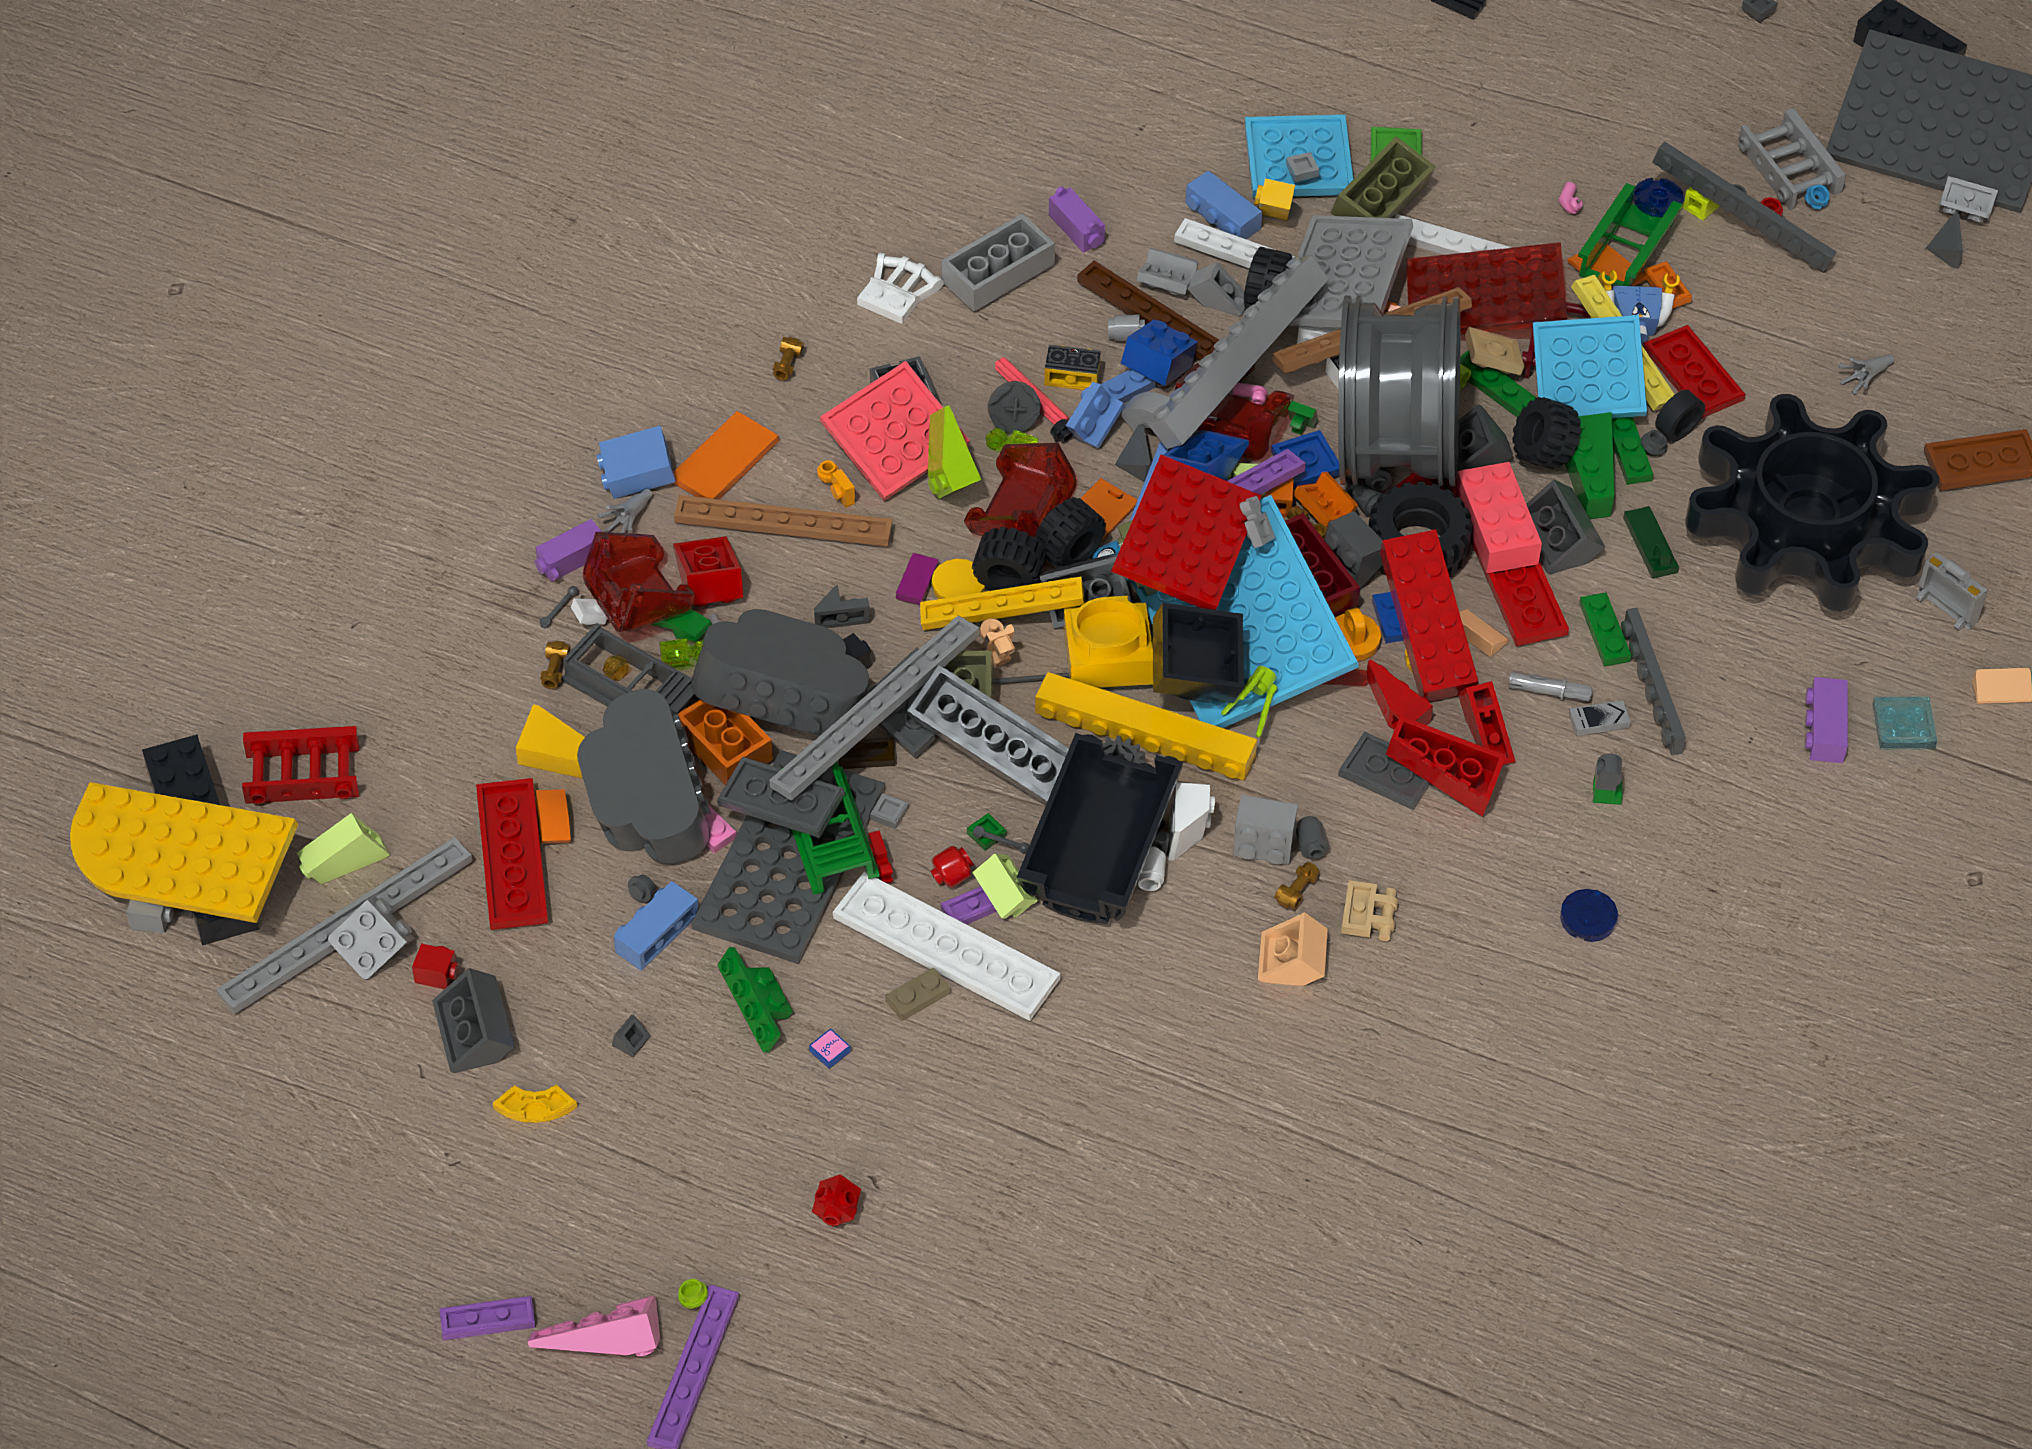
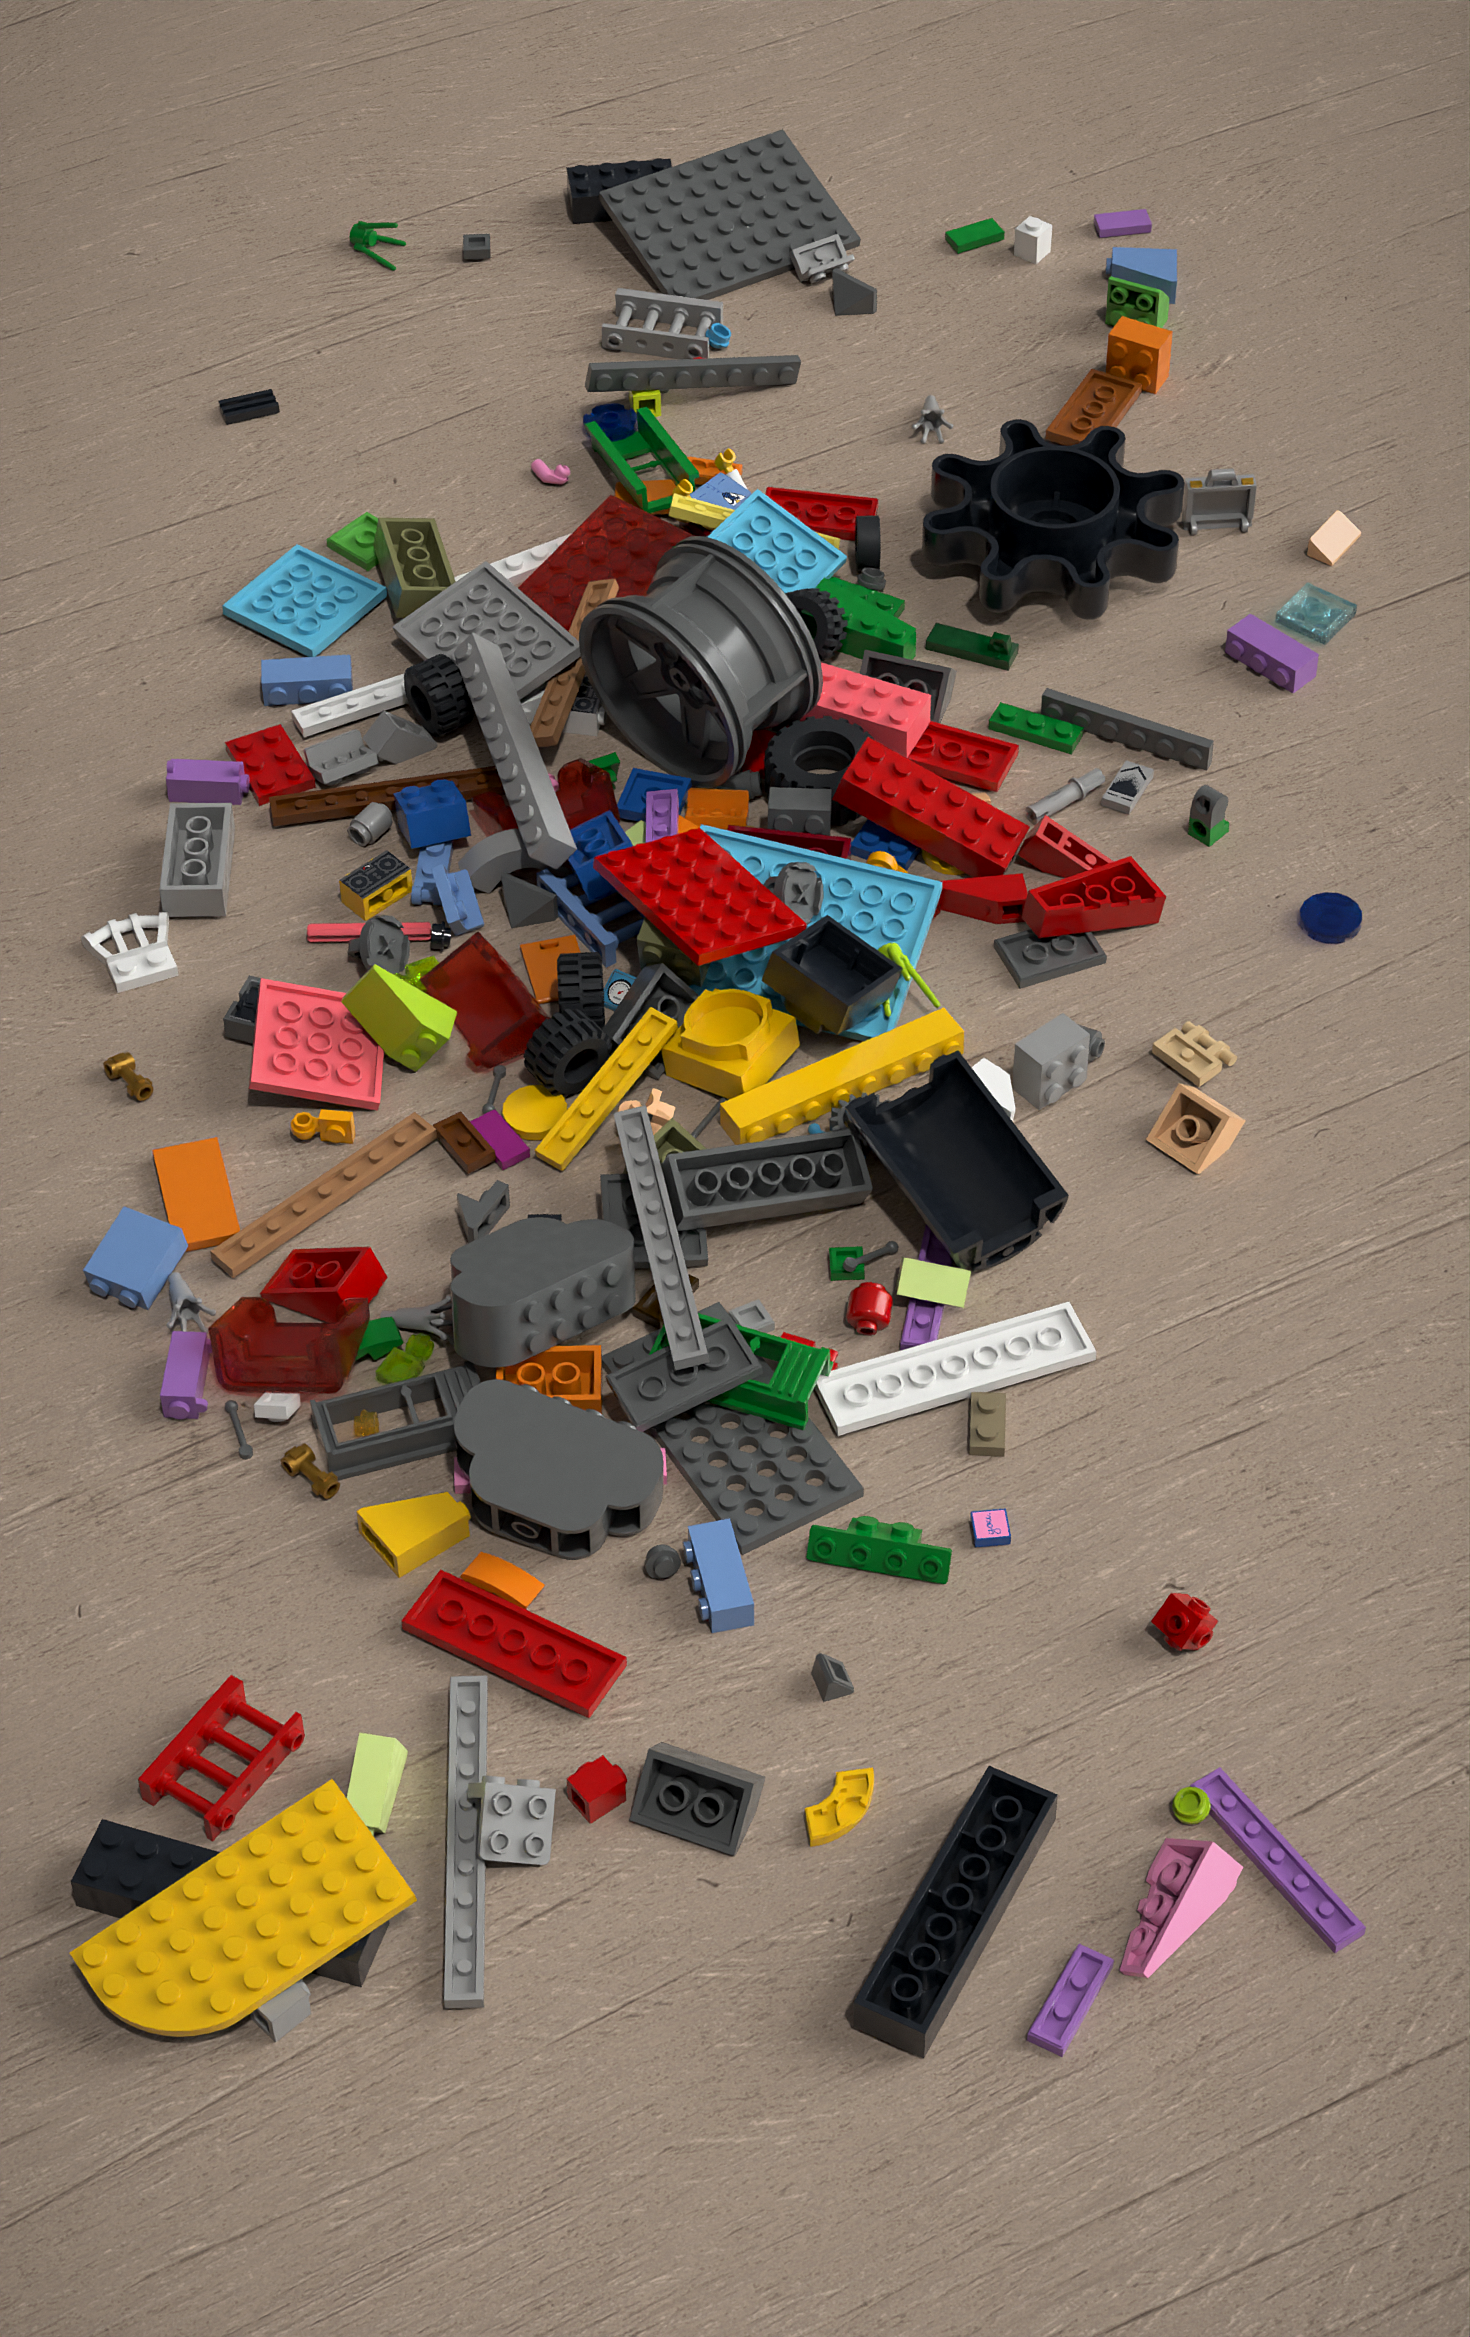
camera: 50 degrees left, 5 degrees down
(494, 1210) = (955, 1912): none -> black brick
(894, 562) = (464, 1142): none -> reddish brown plate
(939, 555) = (499, 1072): none -> dark grey hinge
(1129, 240) = (271, 763): none -> red plate
(1254, 587) = (798, 889): none -> dark grey tile
(1258, 524) = (735, 848): light grey plate -> none
(1275, 198) = (351, 634): yellow brick -> none
(1291, 895) = (1126, 1095): pearl gold bar -> none
(1302, 167) = (330, 600): light grey plate -> none

